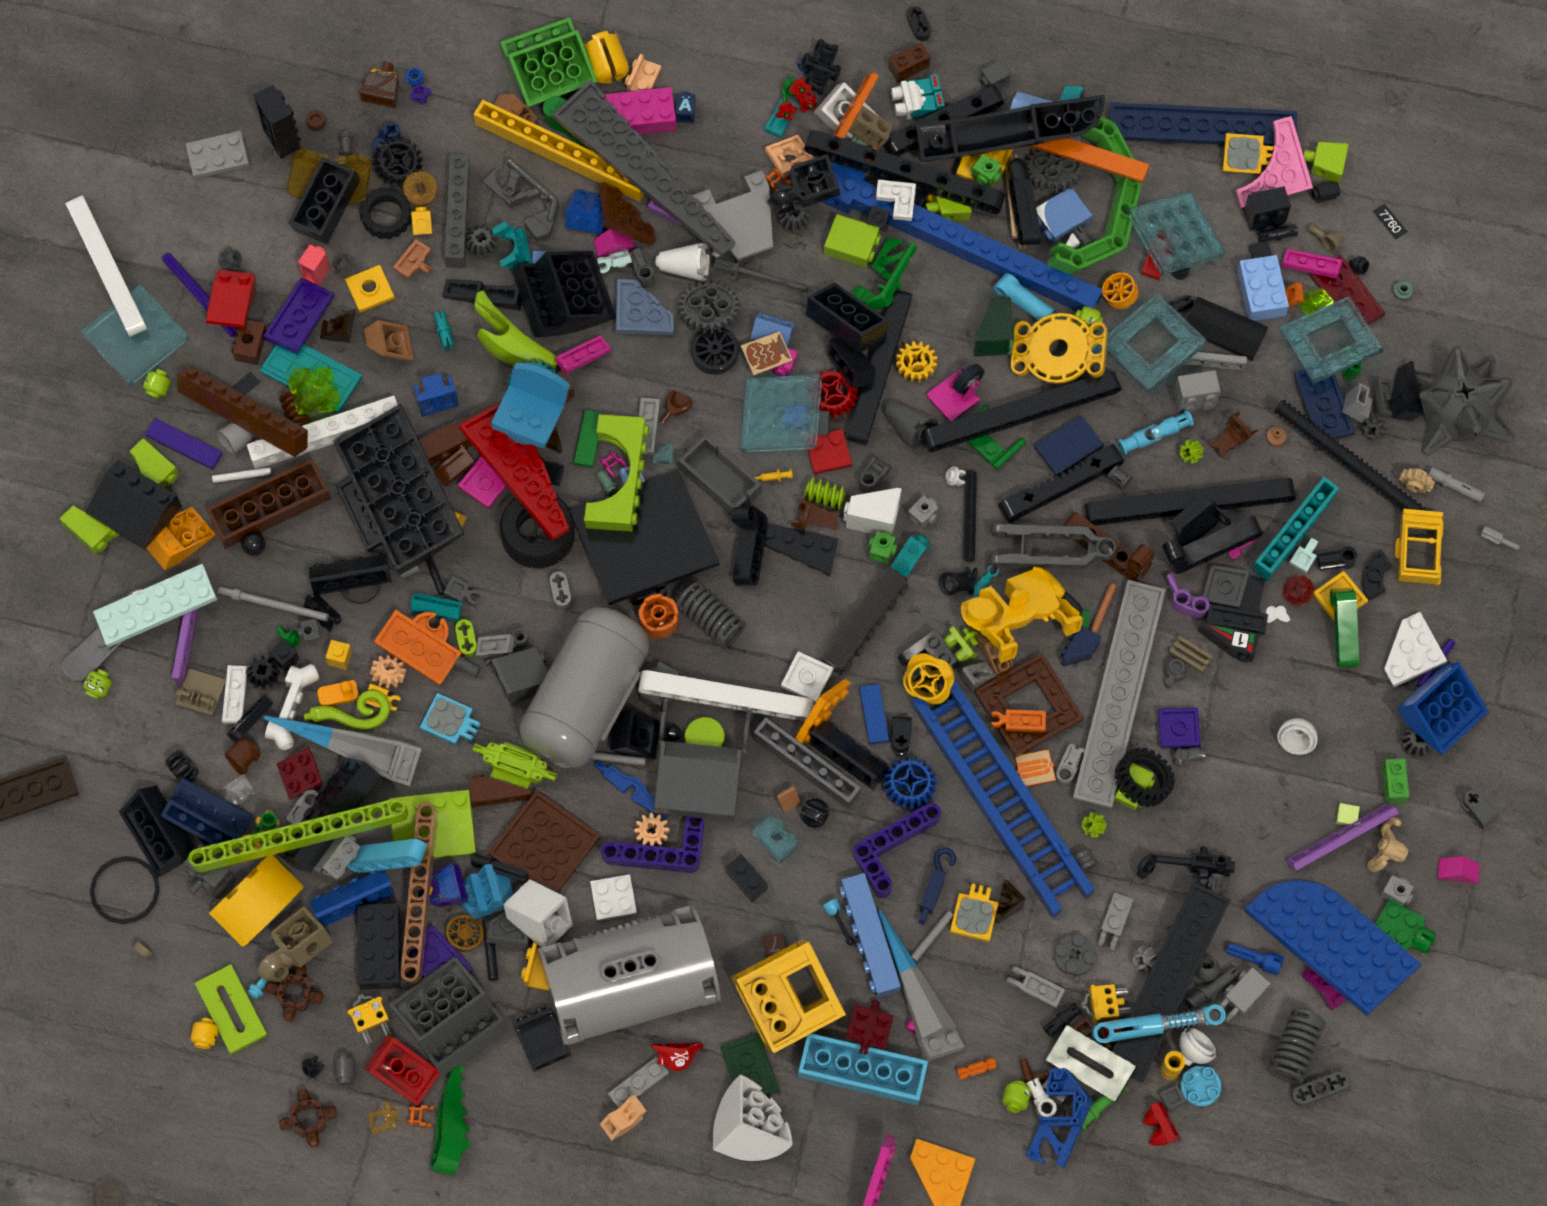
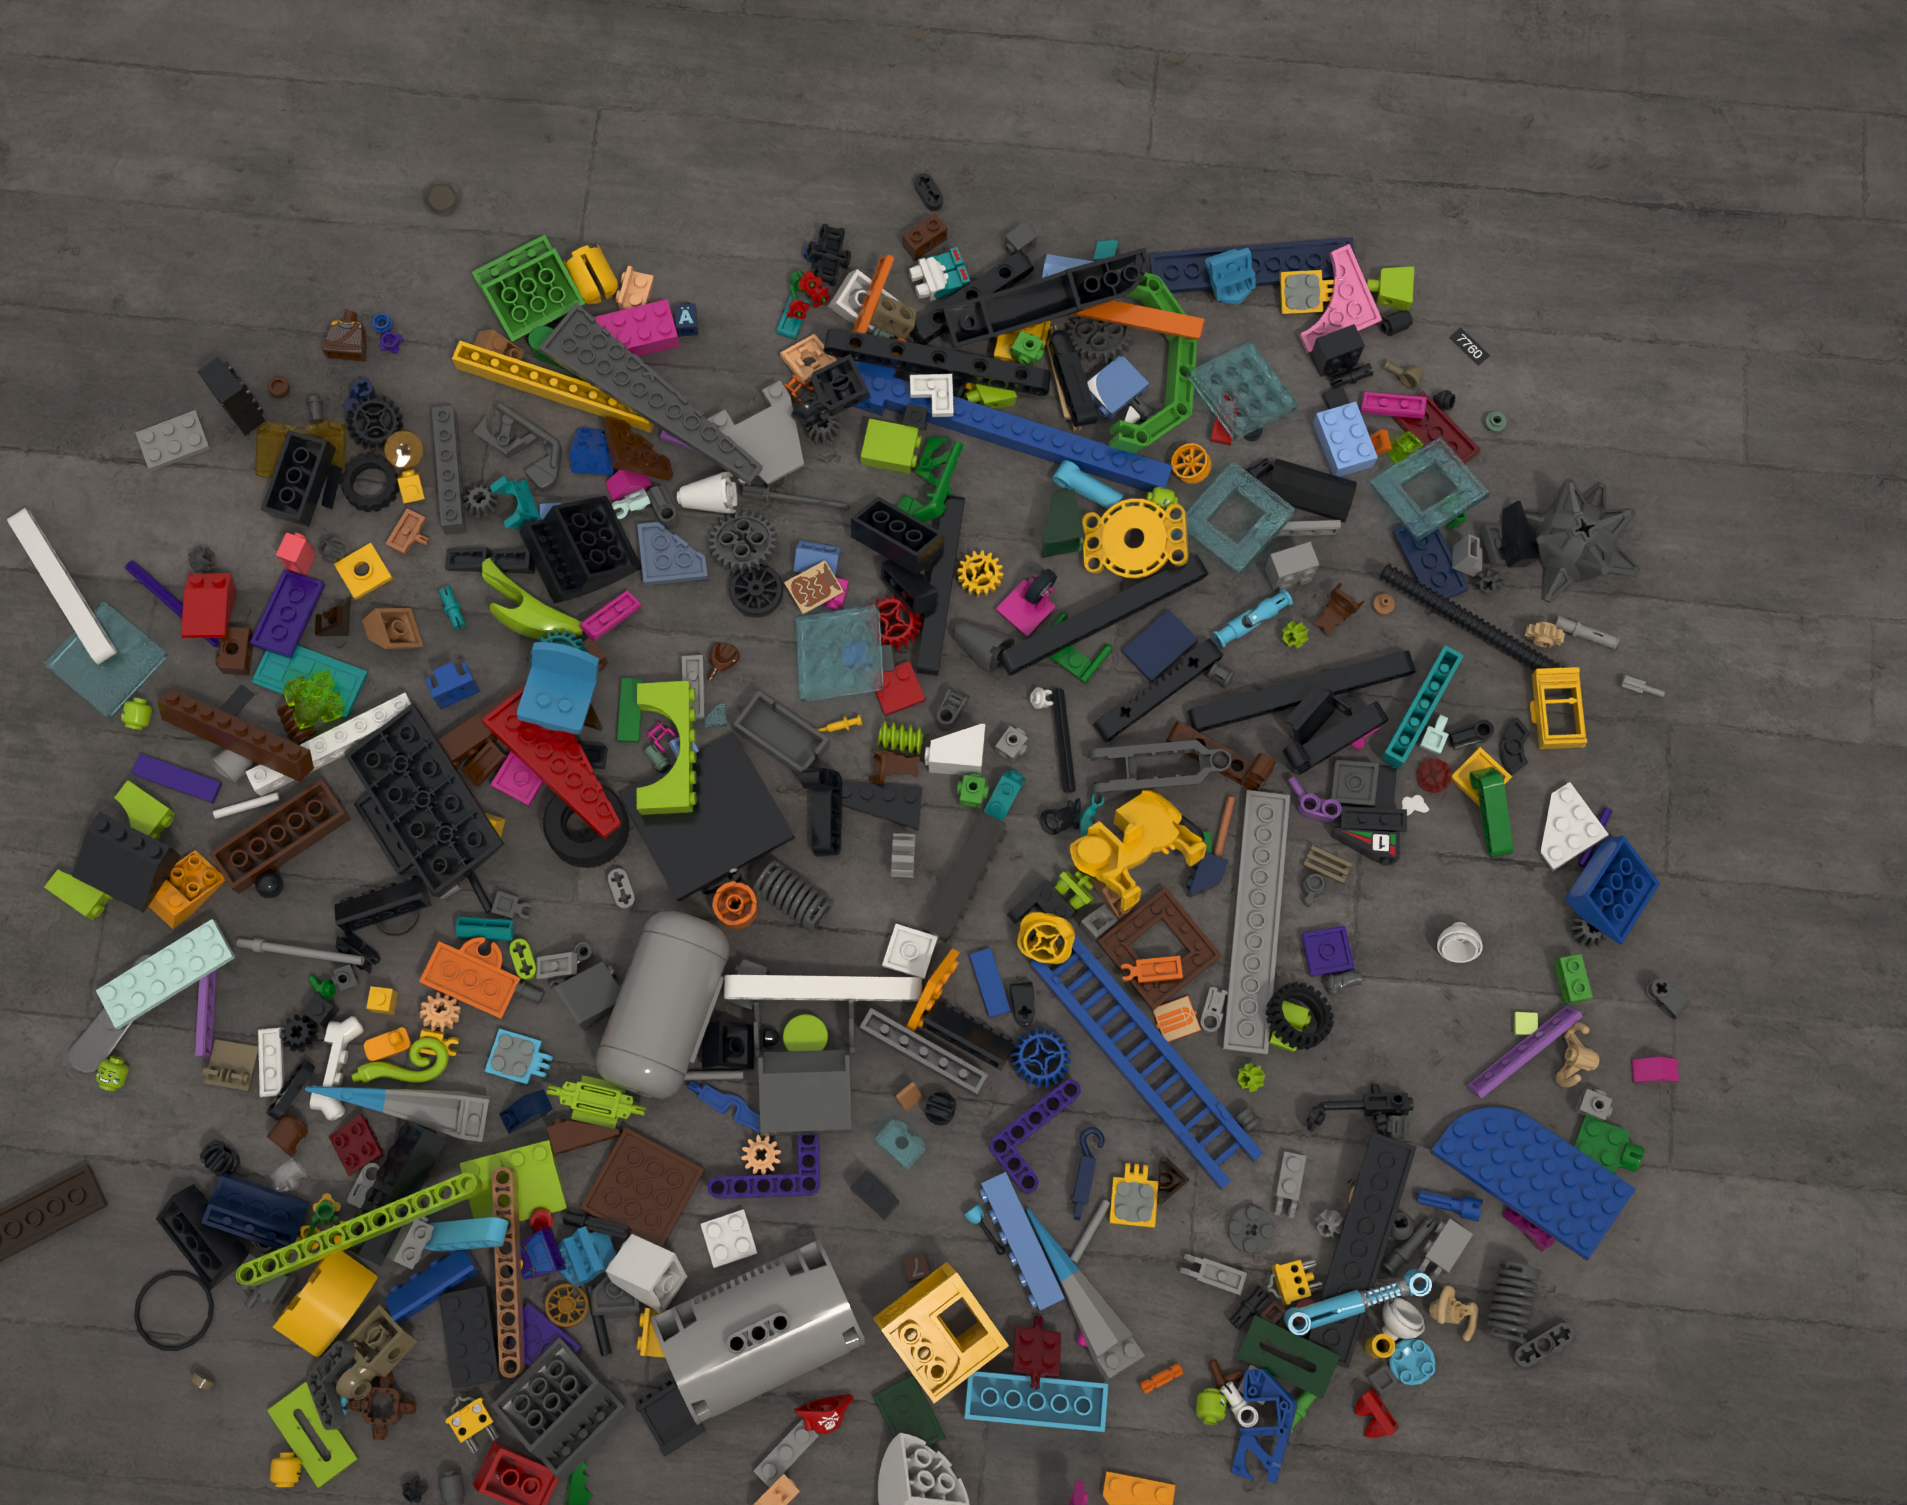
camera: 10 degrees left, 5 degrees up
(244, 964) = (320, 1384): none -> dark grey beam
(352, 212) = (331, 487): none -> black sticker
(451, 765) = (525, 1111): none -> dark blue slope
(452, 855) = (541, 1219): none -> red tile
(813, 593) = (903, 855): none -> light grey gear
(1181, 131) = (1231, 275): none -> dark azure piece
(1240, 1045) = (1449, 1310): none -> tan piece

